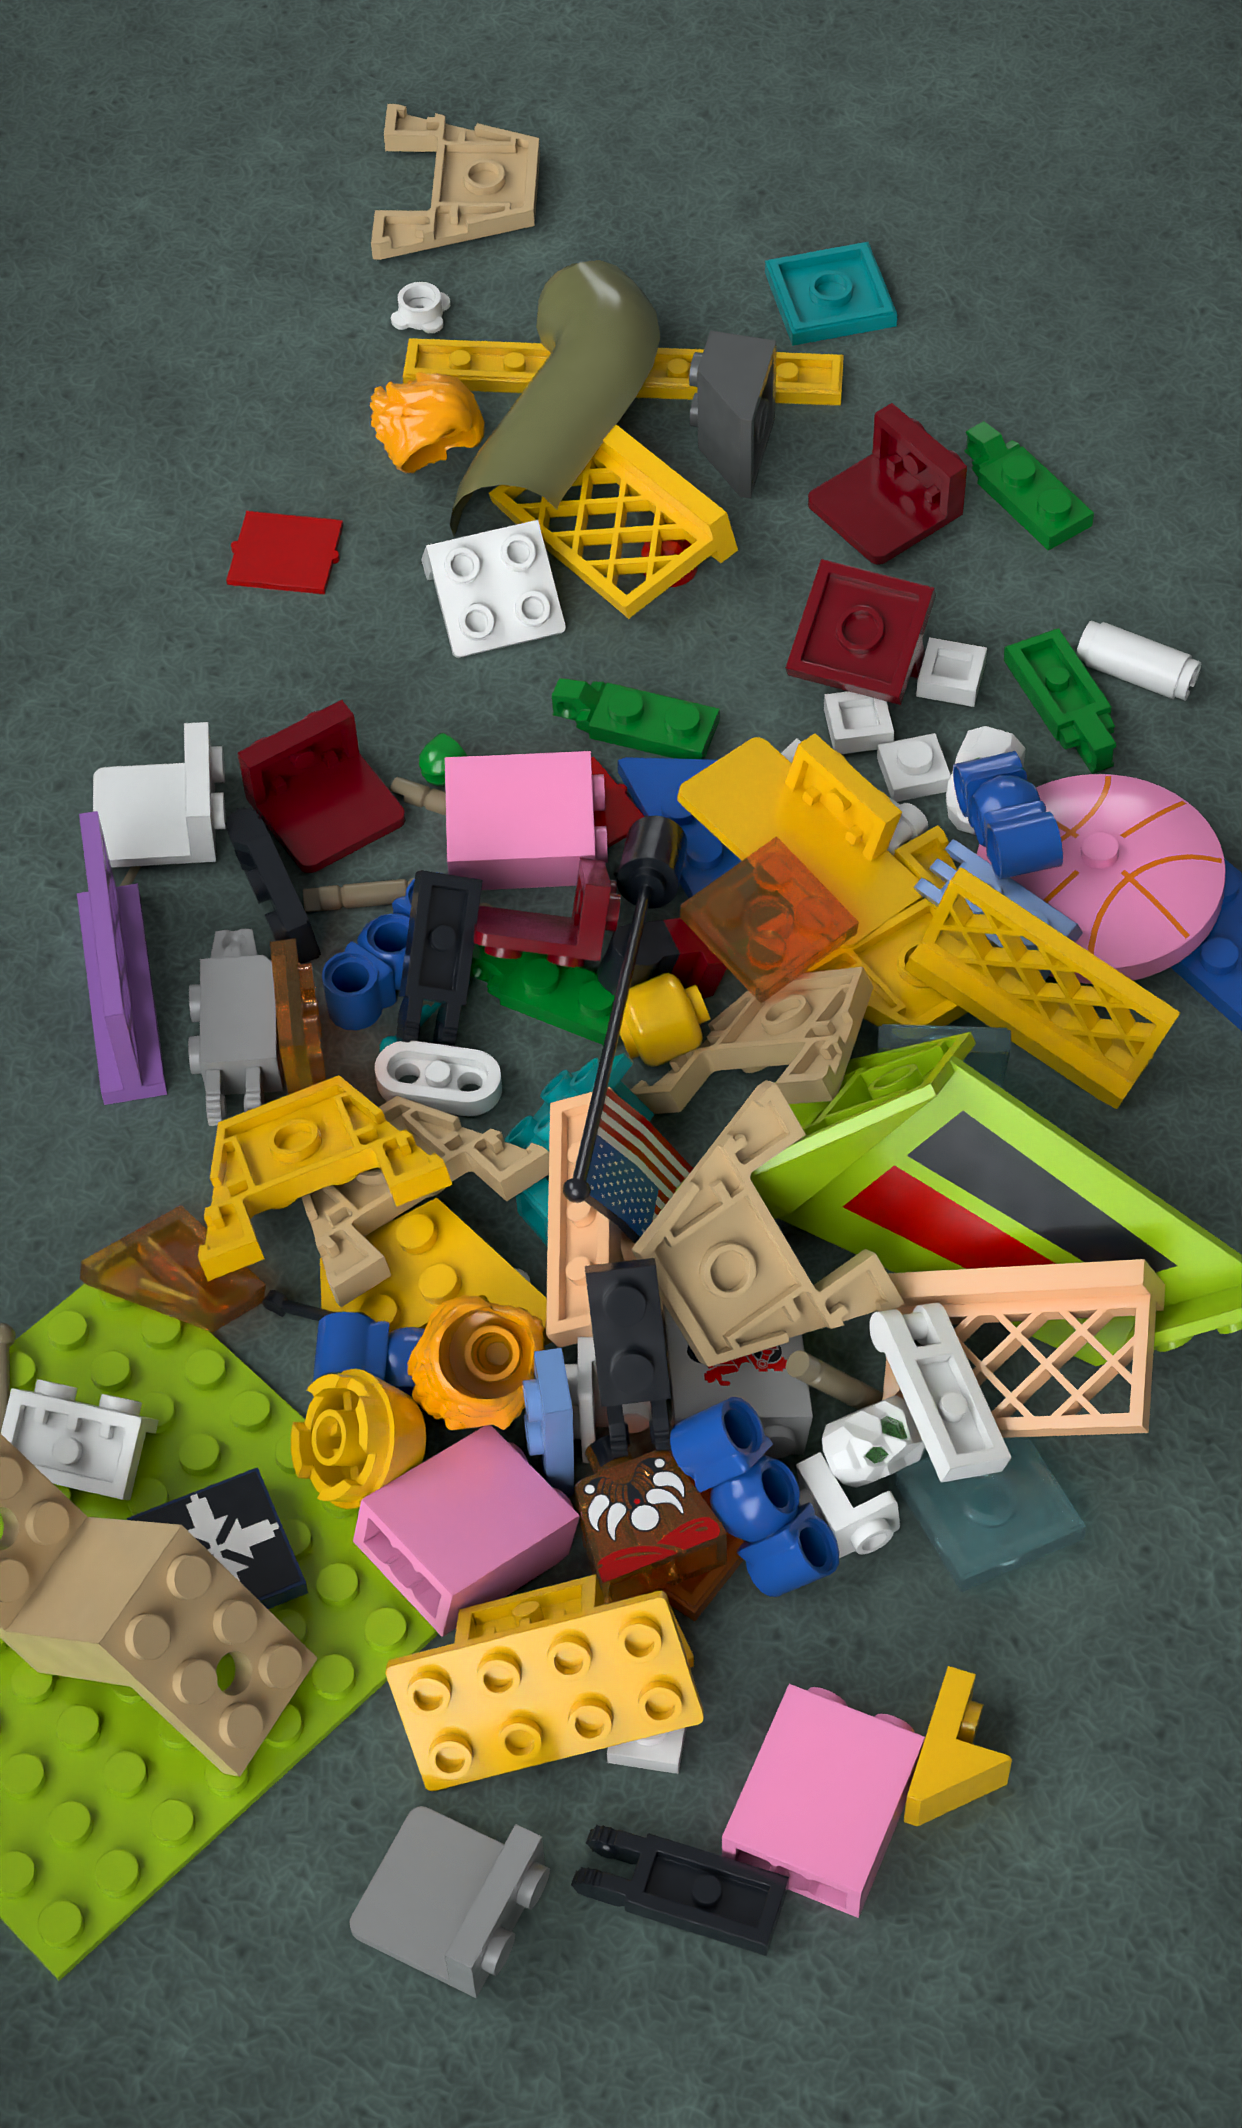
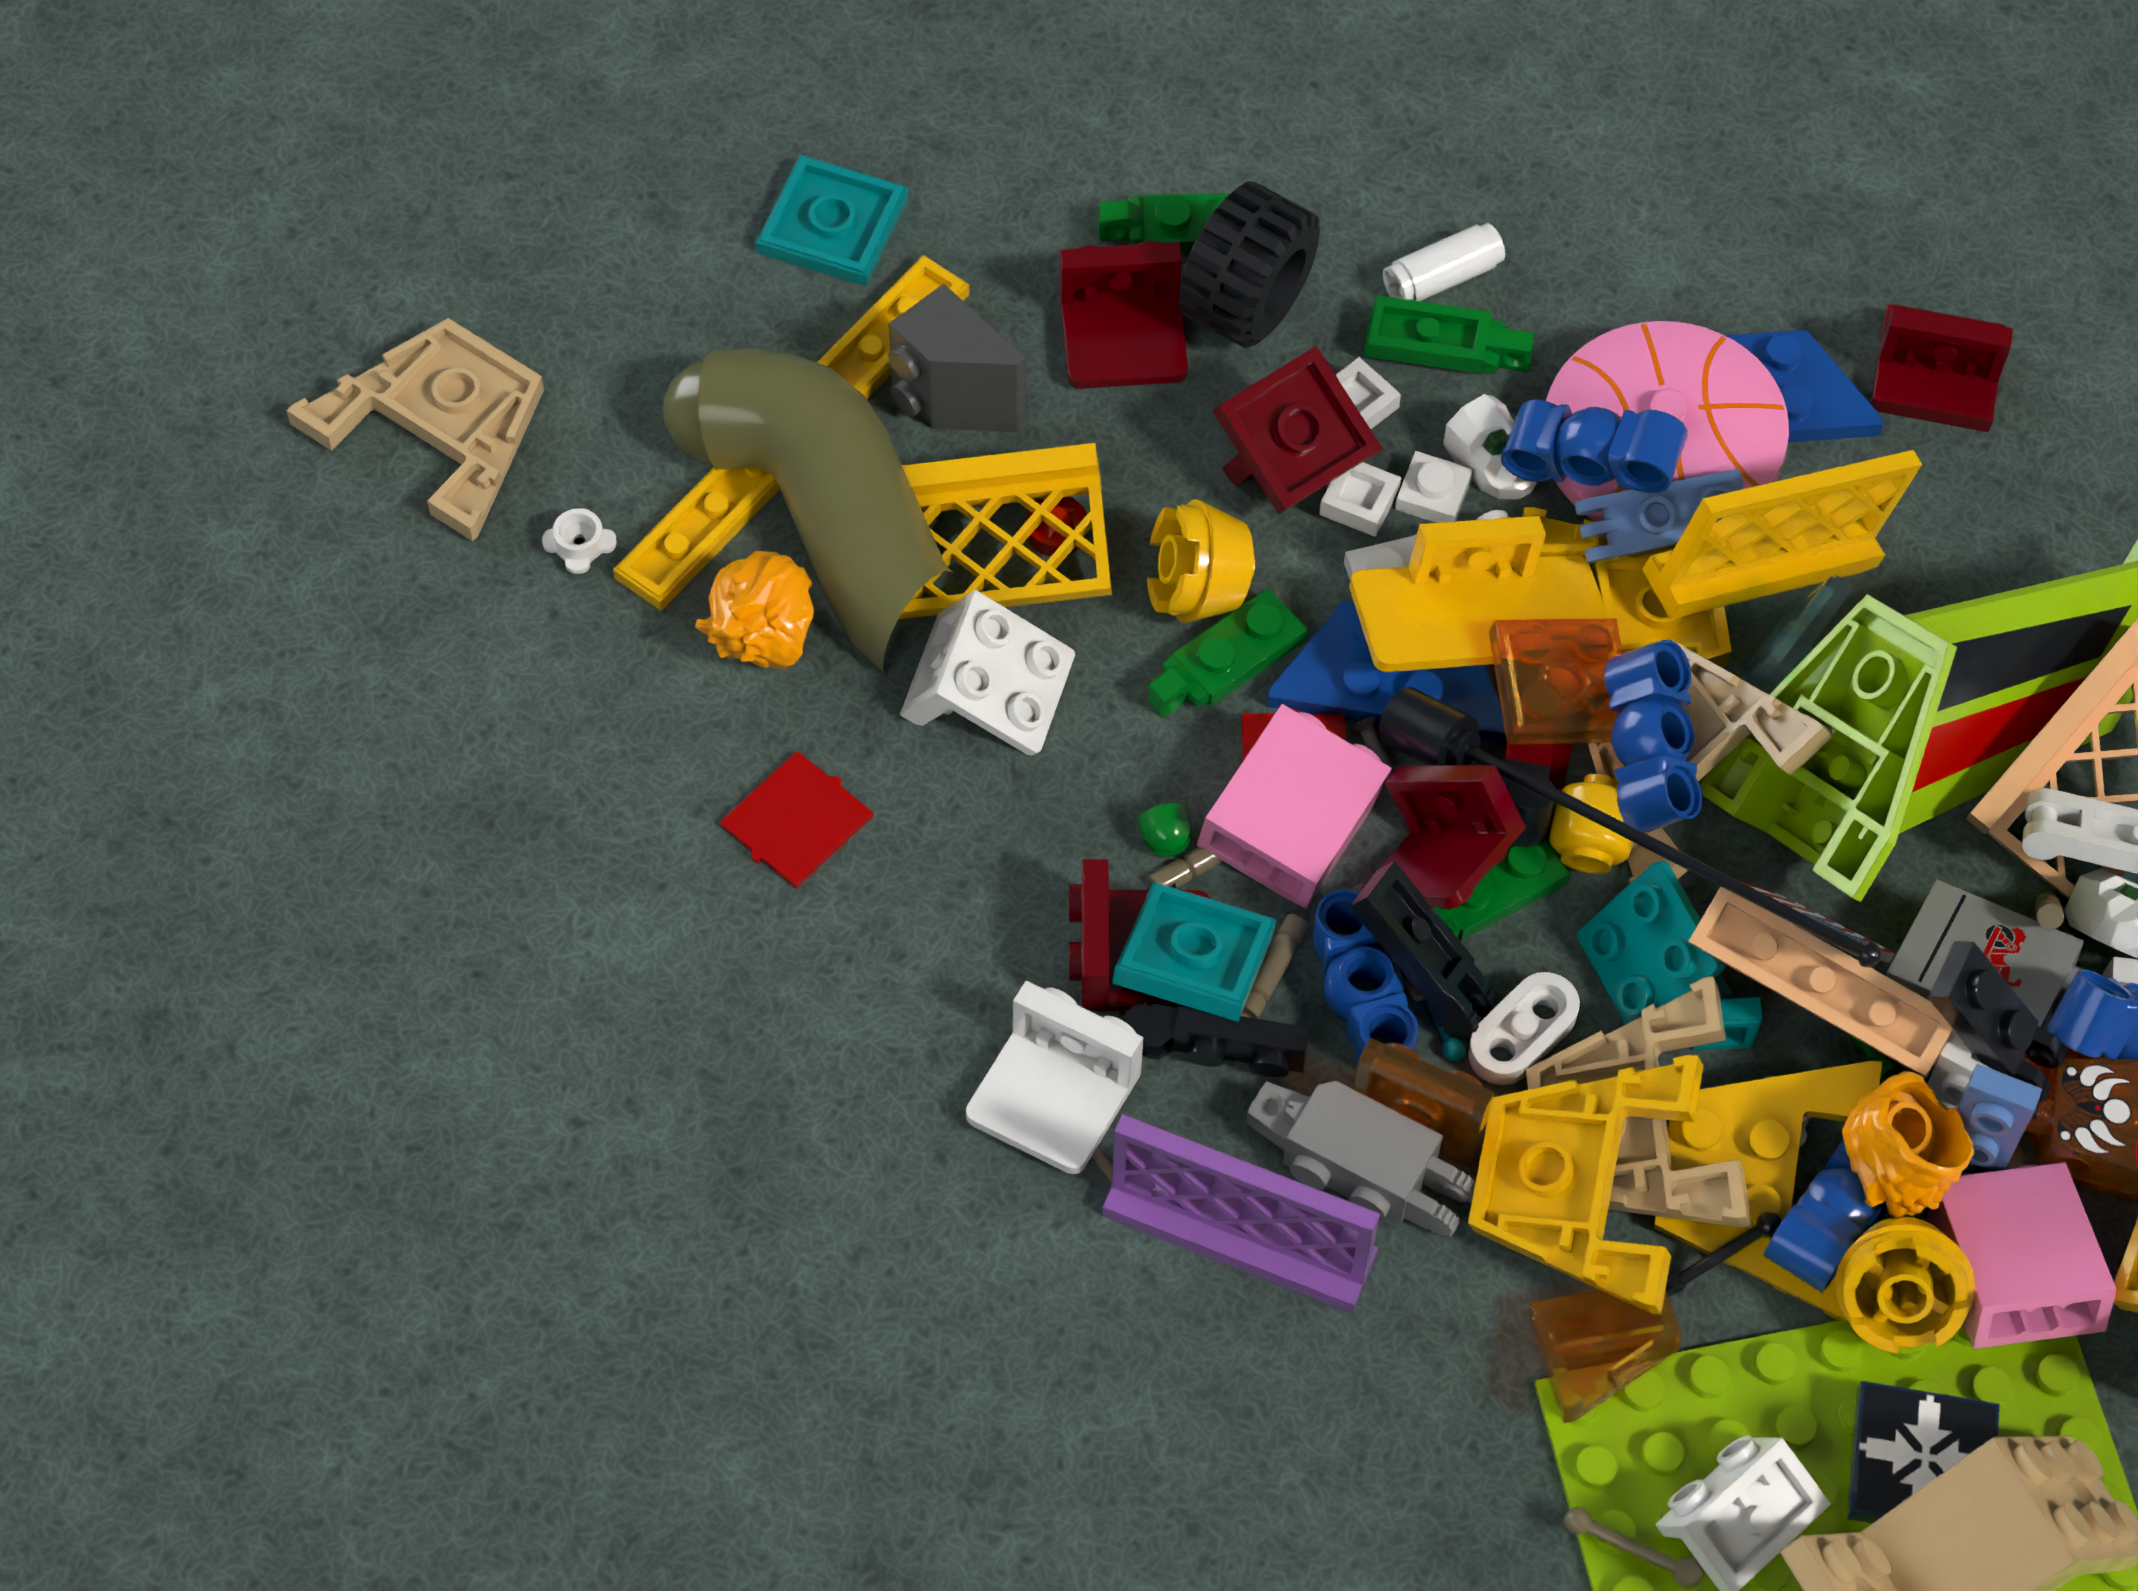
camera: 60 degrees left, 5 degrees up
(329, 821) = (1194, 951): none -> teal tile
(692, 644) = (1201, 562): none -> yellow cone
(726, 1260) = (1935, 885): tan wing -> none
(777, 983) = (1653, 736): none -> blue piece
(991, 520) = (1249, 264): none -> black tyre

